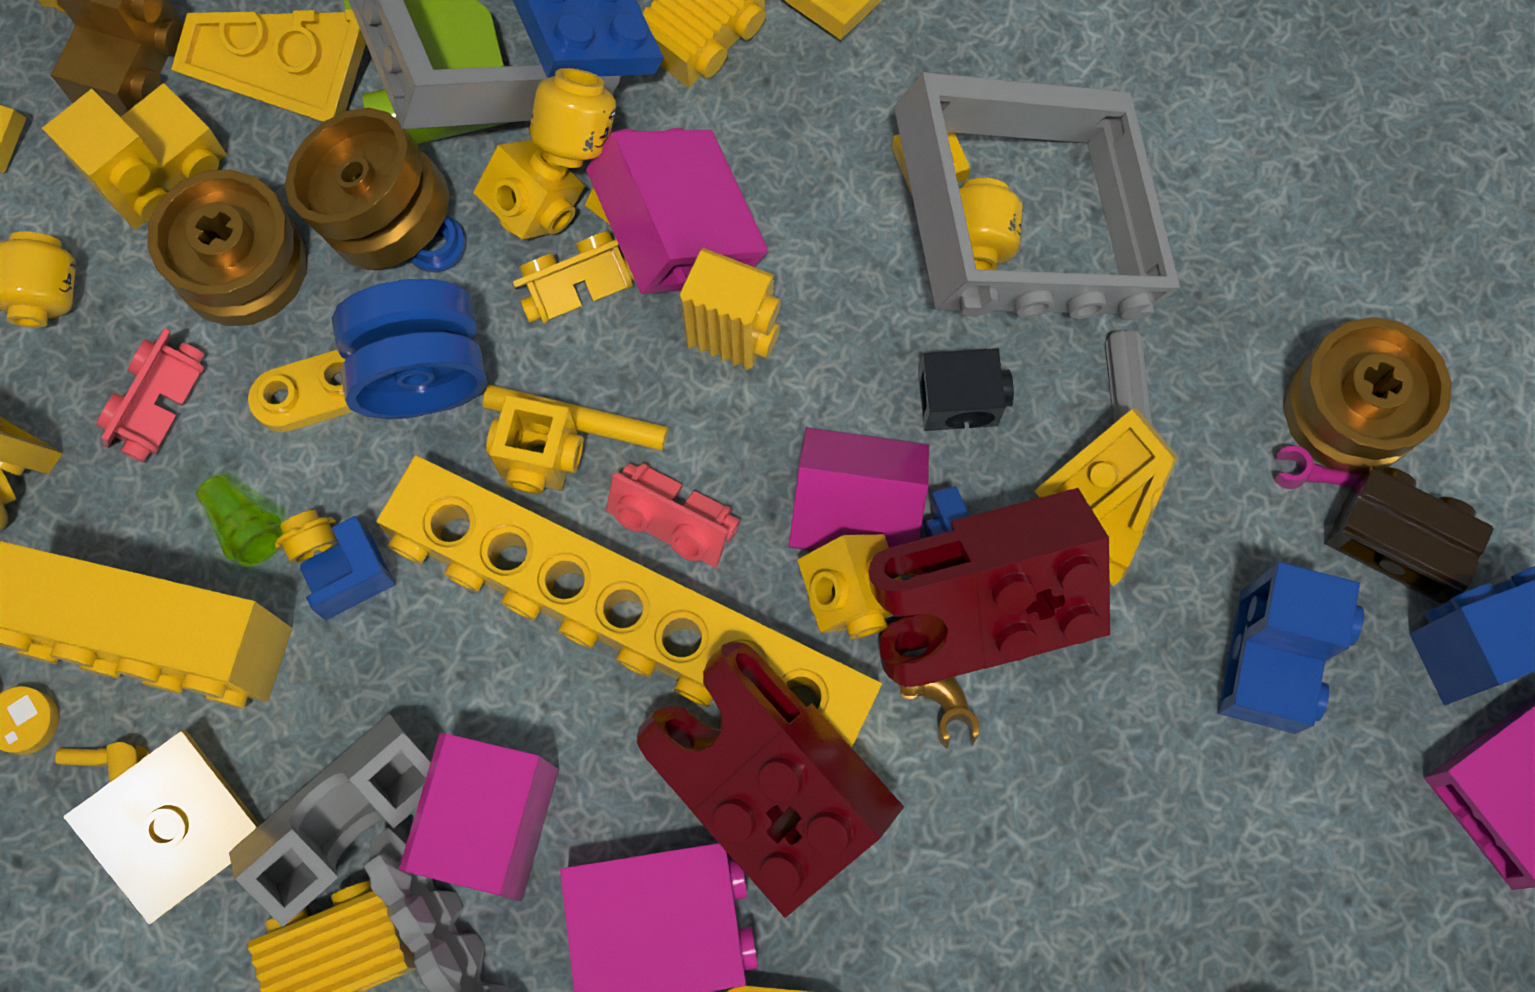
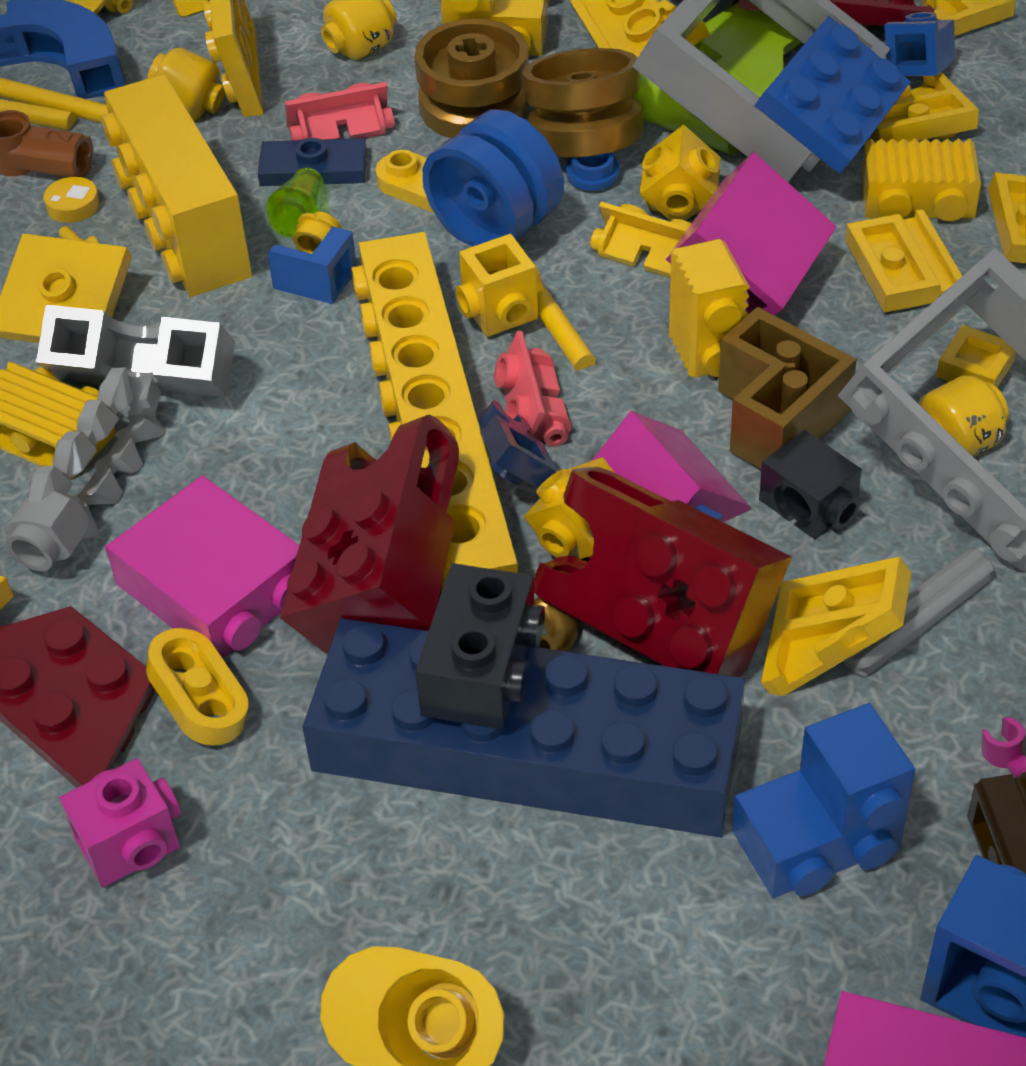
camera: 55 degrees right, 25 degrees down
(190, 454) = (334, 159): none -> dark blue plate
(480, 816) = (205, 421): dark pink slope -> none
(572, 116) = (739, 129): yellow head -> none
(755, 586) = (512, 449): none -> dark blue plate
(775, 109) = (902, 260): none -> yellow plate
(858, 314) = (779, 384): none -> pearl gold brick
(998, 800) = (478, 646): none -> black brick
(1034, 799) = (585, 740): none -> dark blue brick

